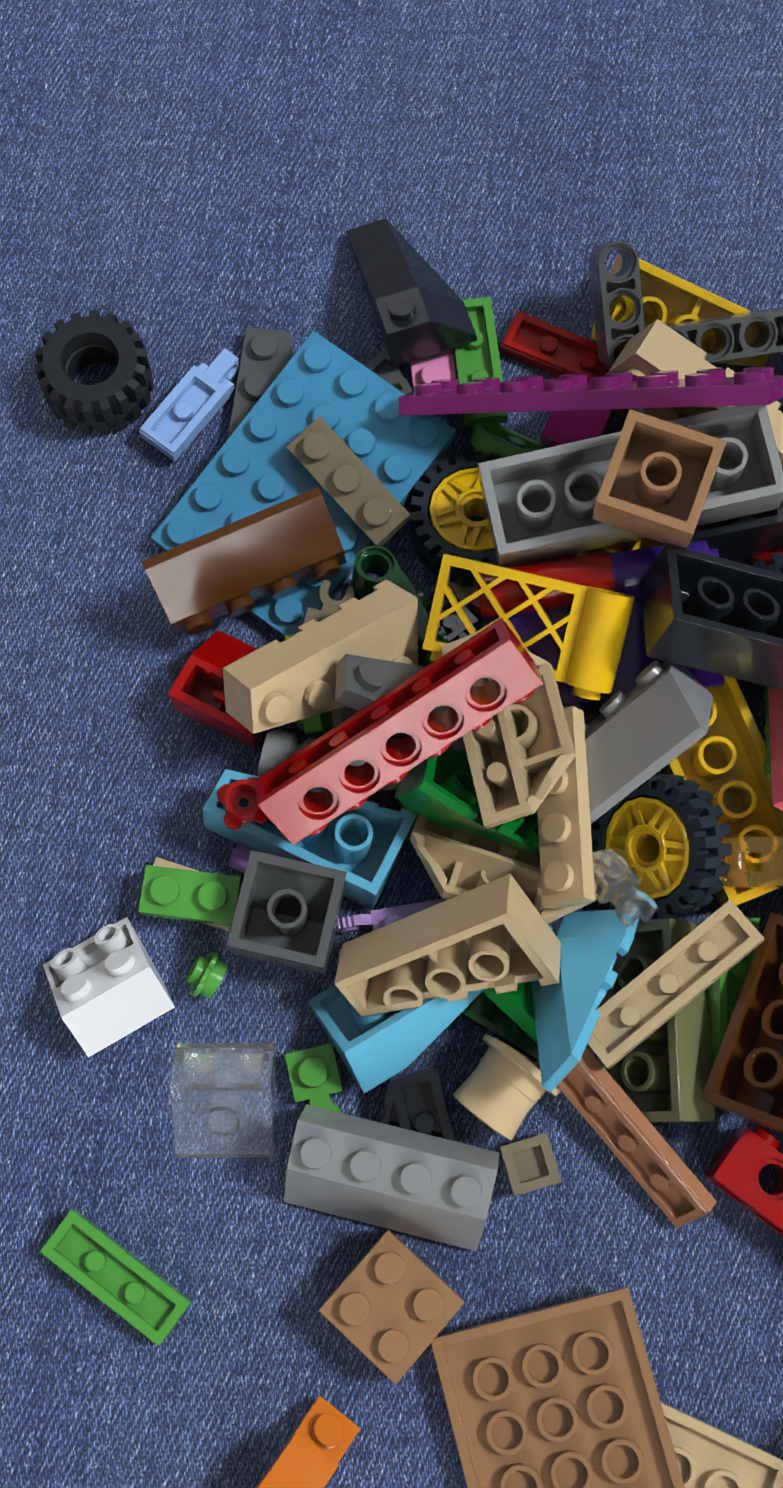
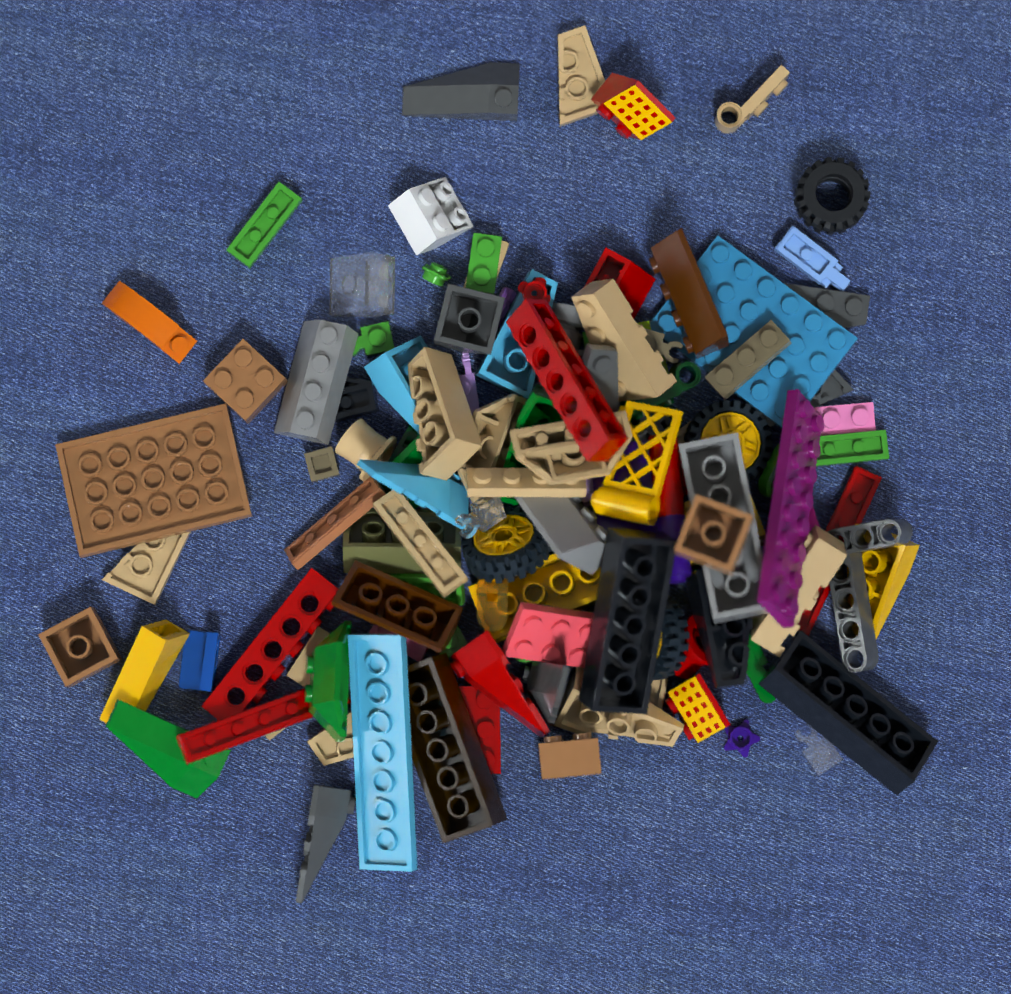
camera: 90 degrees right, 10 degrees up
(409, 298) = (887, 401): black wedge -> none

